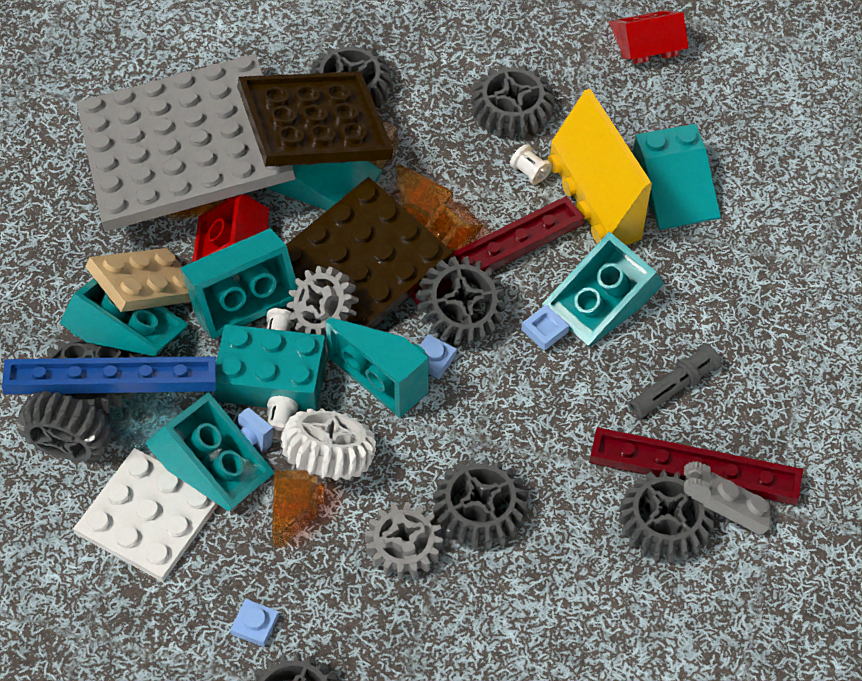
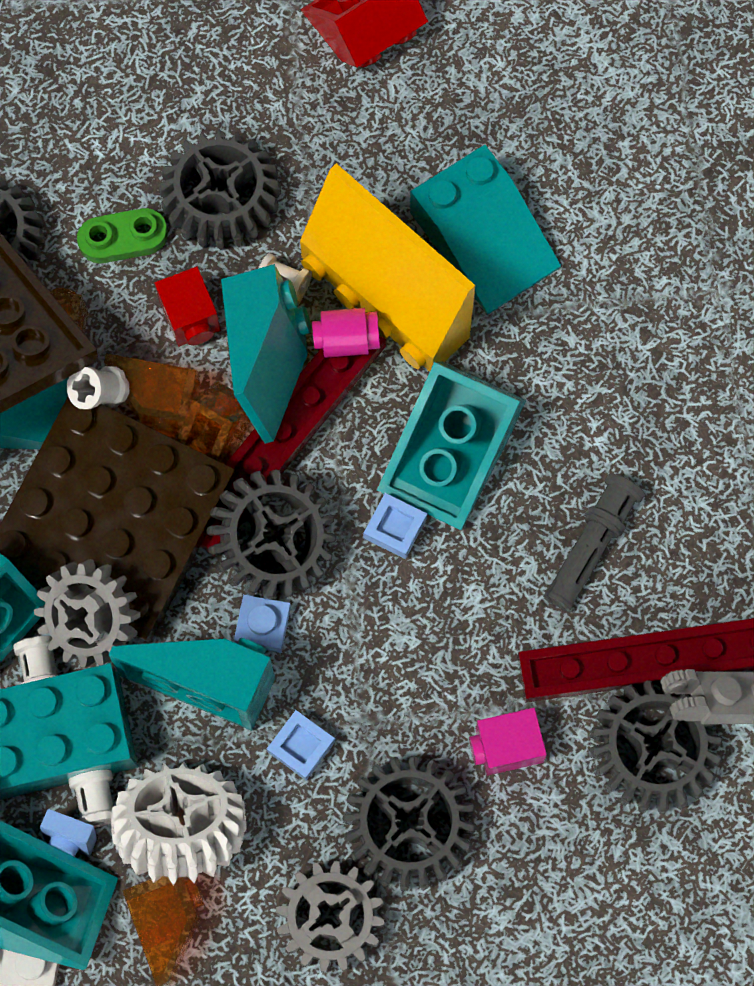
camera: 20 degrees left, 15 degrees up
(381, 175) = (94, 387): none -> white bush
(428, 434) = (301, 745): none -> light blue plate
(438, 109) = (122, 238): none -> bright green plate
(463, 159) = (188, 307): none -> red brick
(502, 188) = (264, 344): none -> teal slope
(559, 200) = (346, 332): none -> dark pink brick
(567, 478) = (508, 742): none -> dark pink brick

